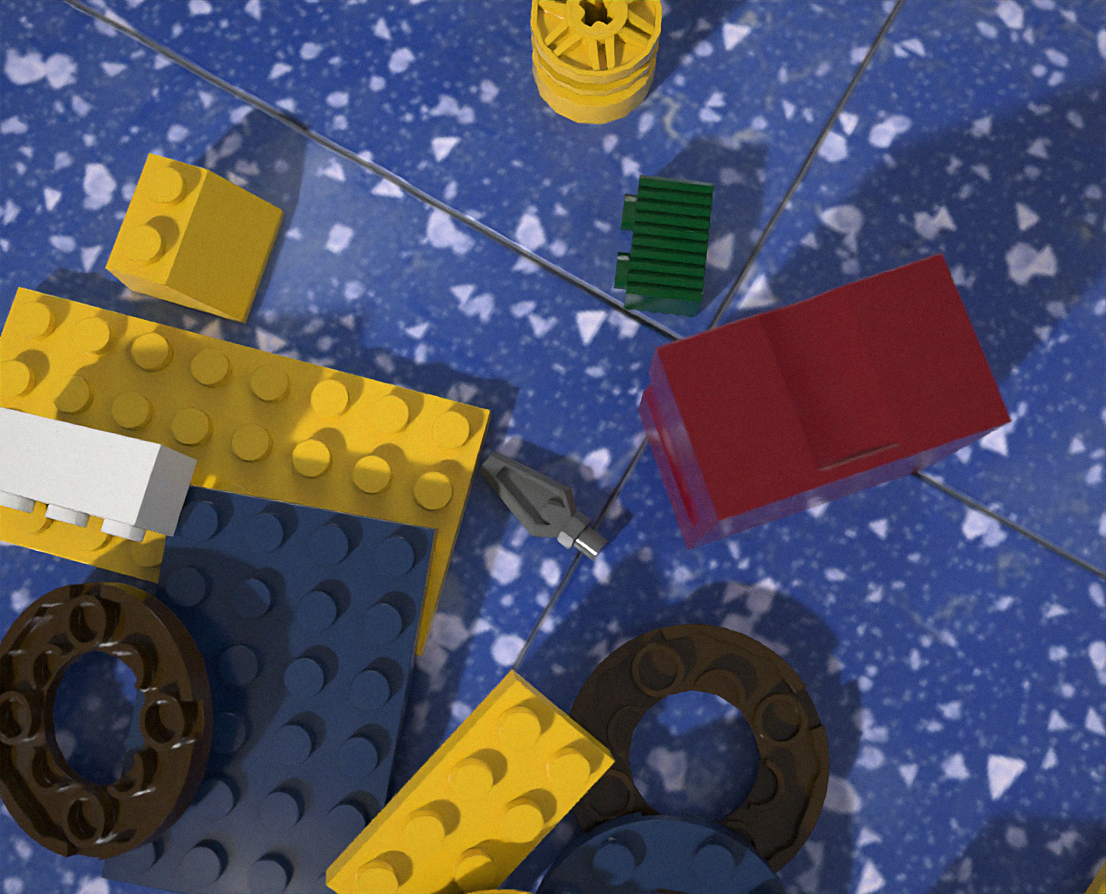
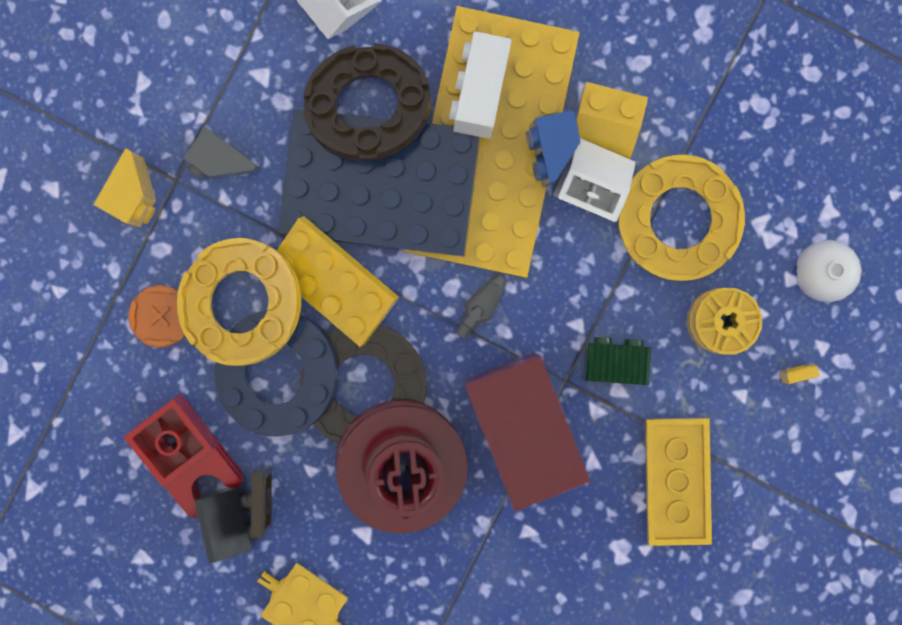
camera: 80 degrees right, 10 degrees up
(215, 331) = (554, 142): none -> blue slope
(309, 265) = (596, 180): none -> white slope
(388, 39) = (725, 210): none -> yellow plate
(831, 741) = (374, 446): none -> dark red wheel
(900, 145) = (678, 481): none -> yellow plate

